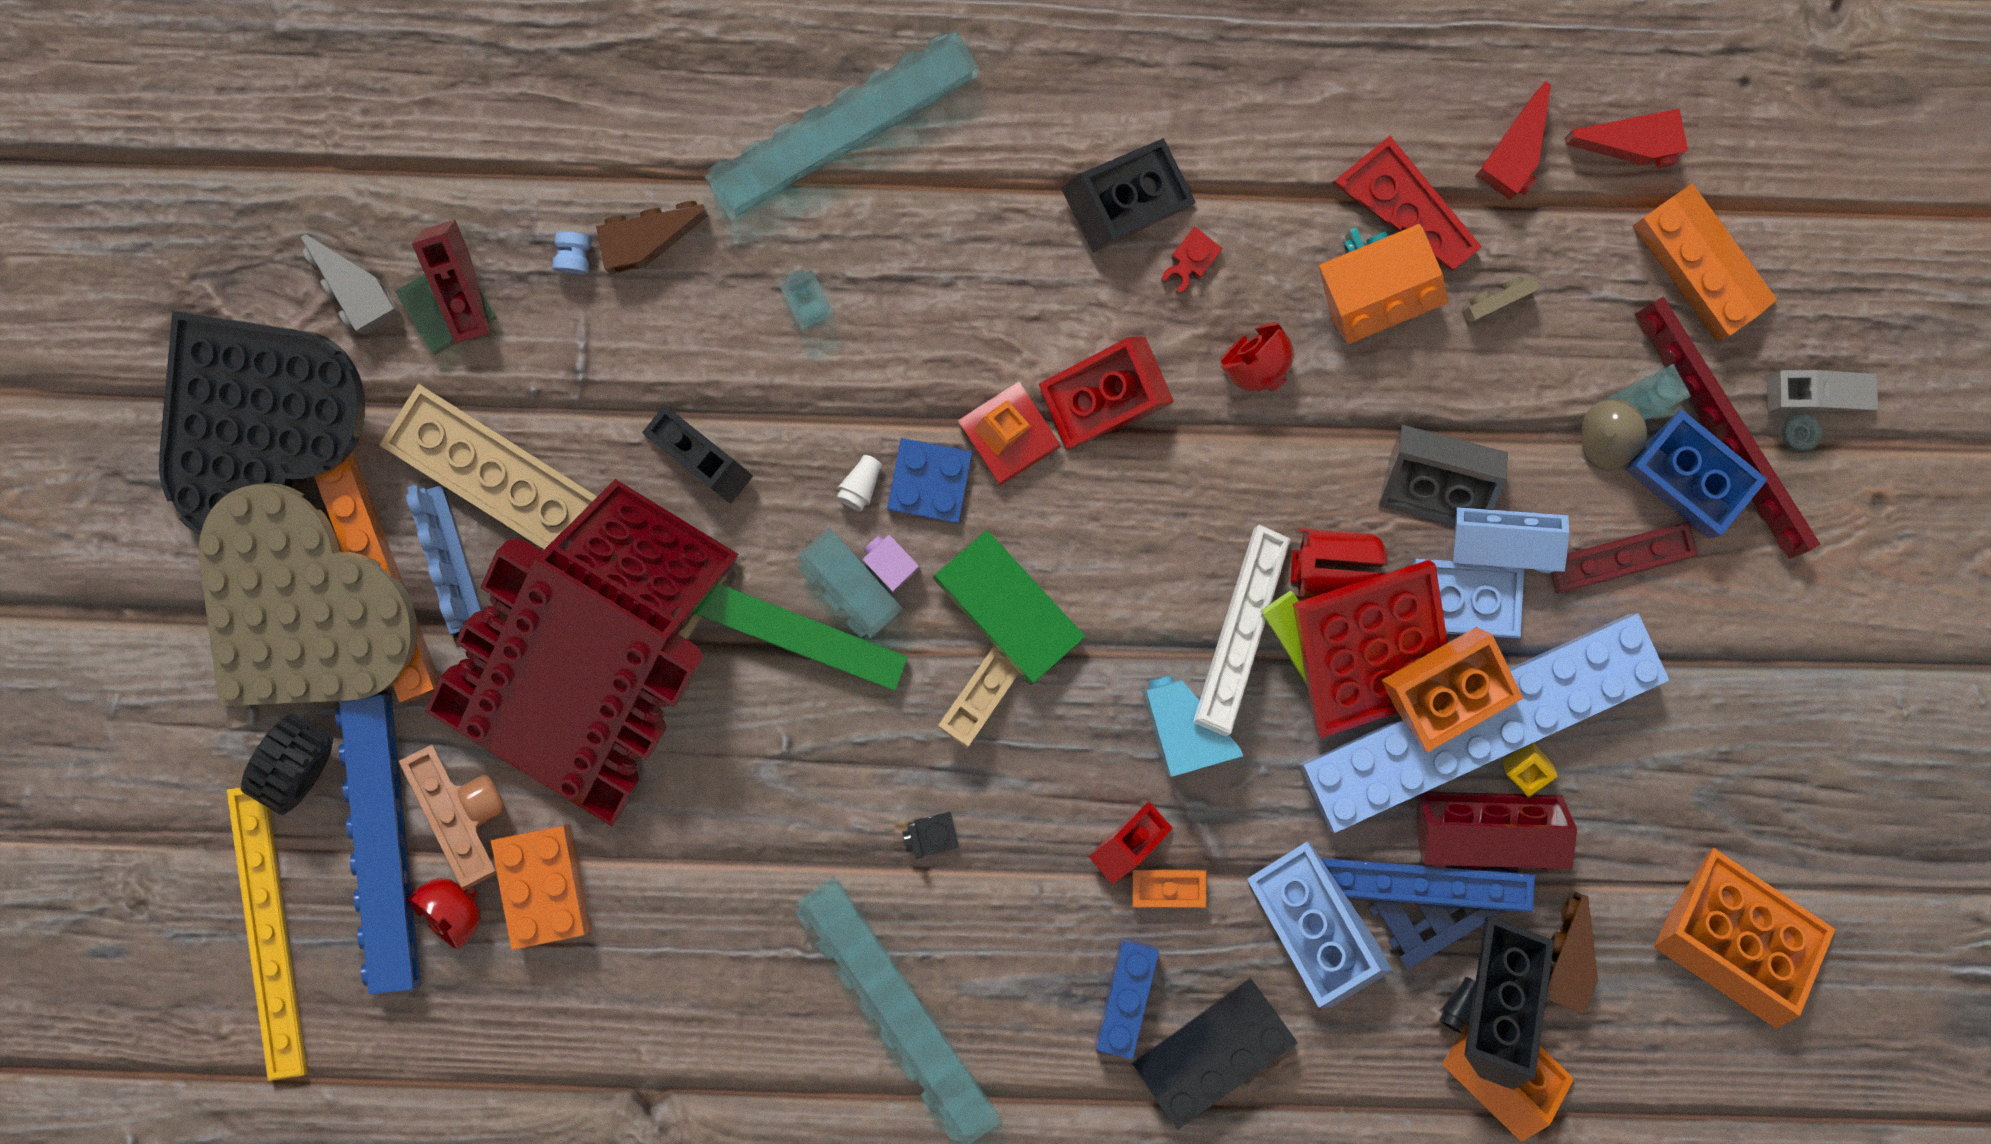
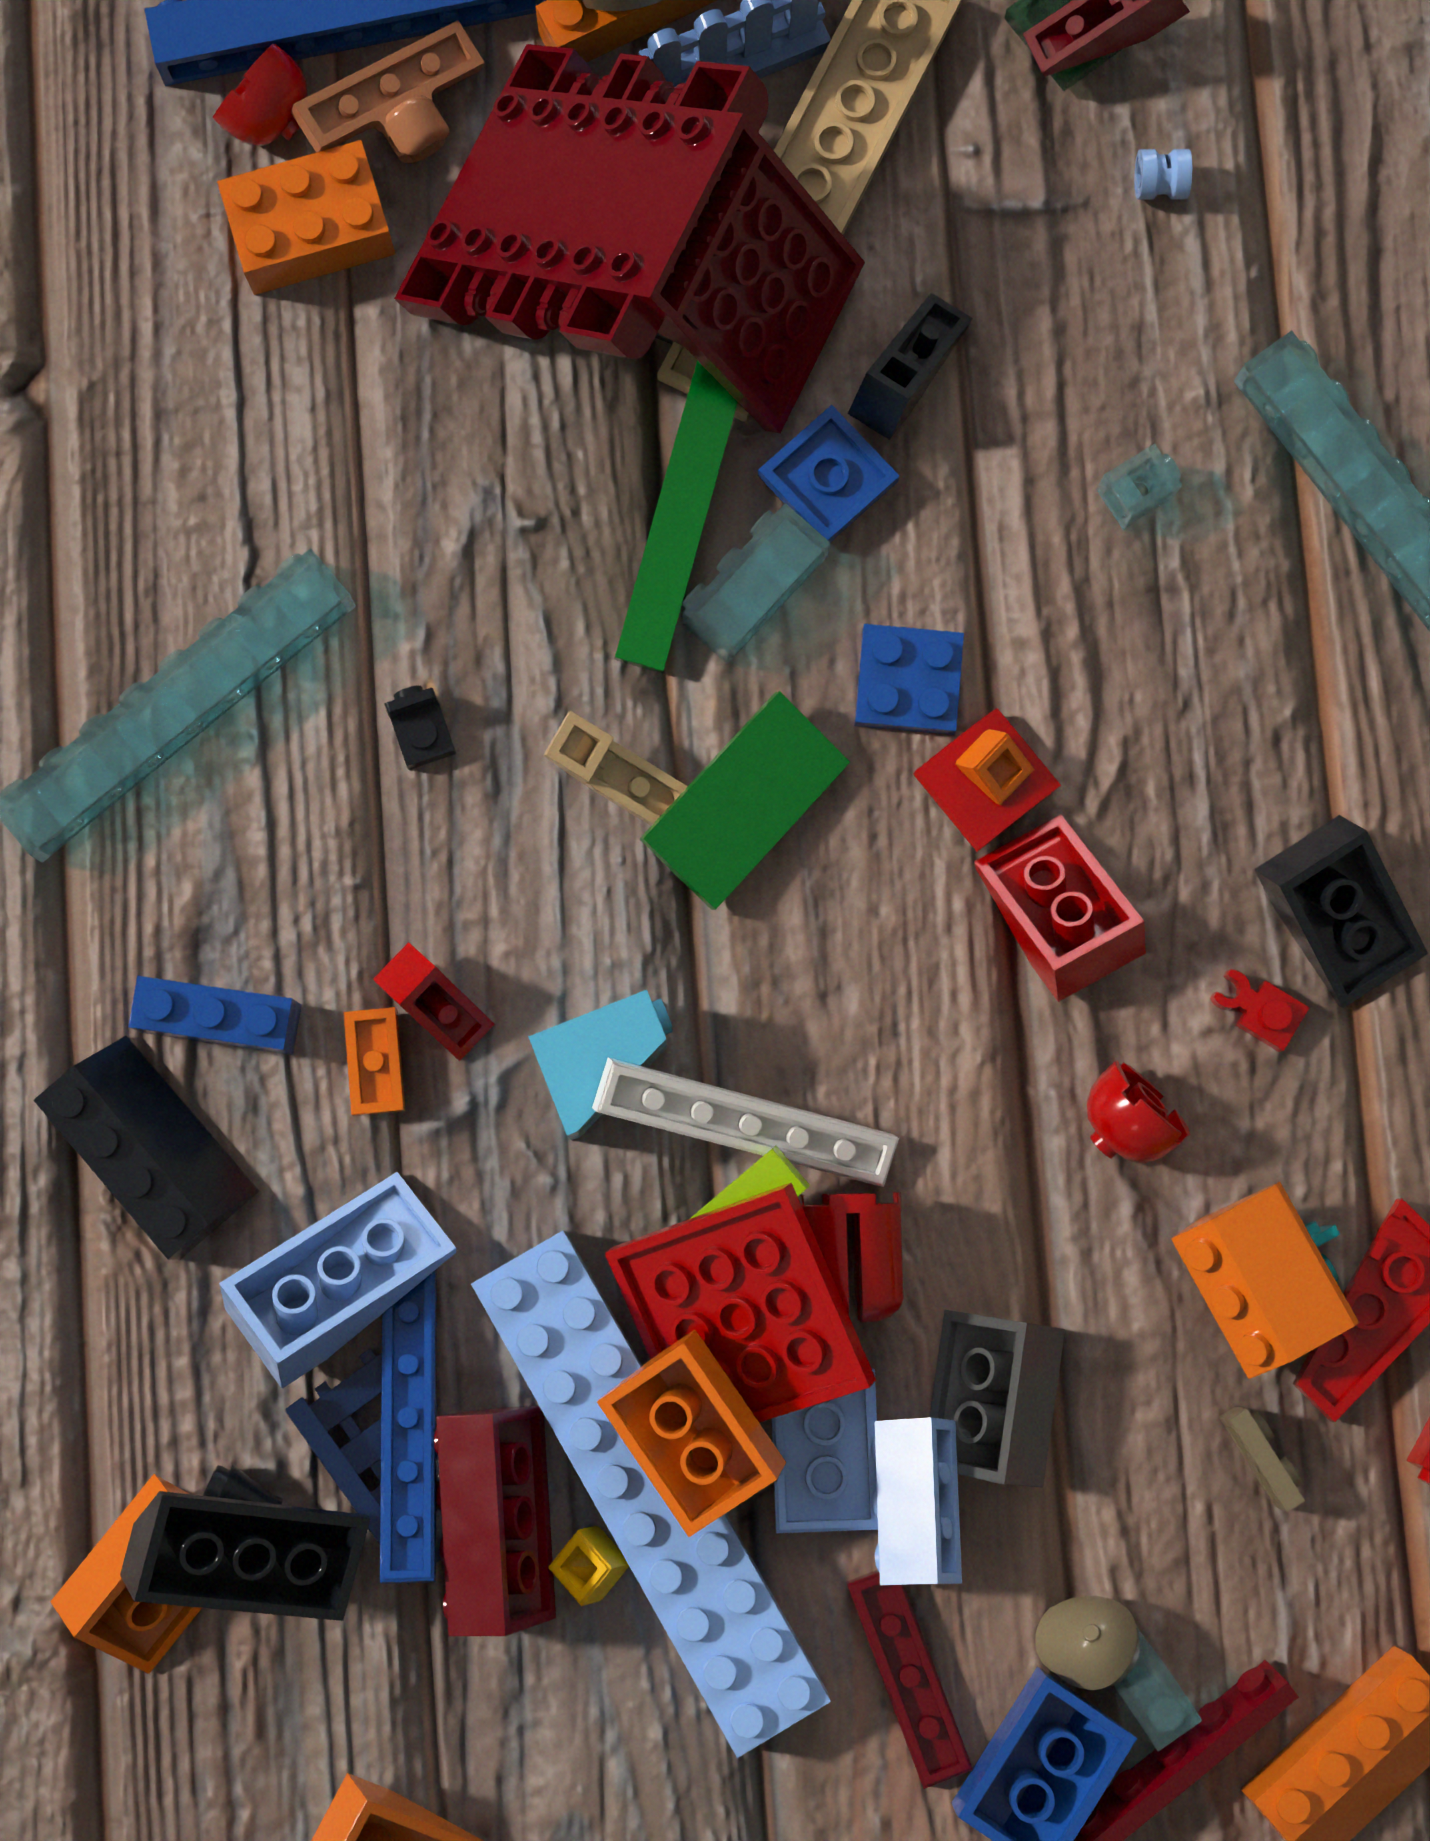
camera: 85 degrees right, 5 degrees down
(640, 240) = (1193, 265): reddish brown slope -> none
(774, 522) = (828, 474): none -> blue plate
(860, 483) = (894, 584): white cone -> none
(889, 561) = (790, 633): lavender brick -> none
(1573, 957) = (312, 1653): reddish brown slope -> none

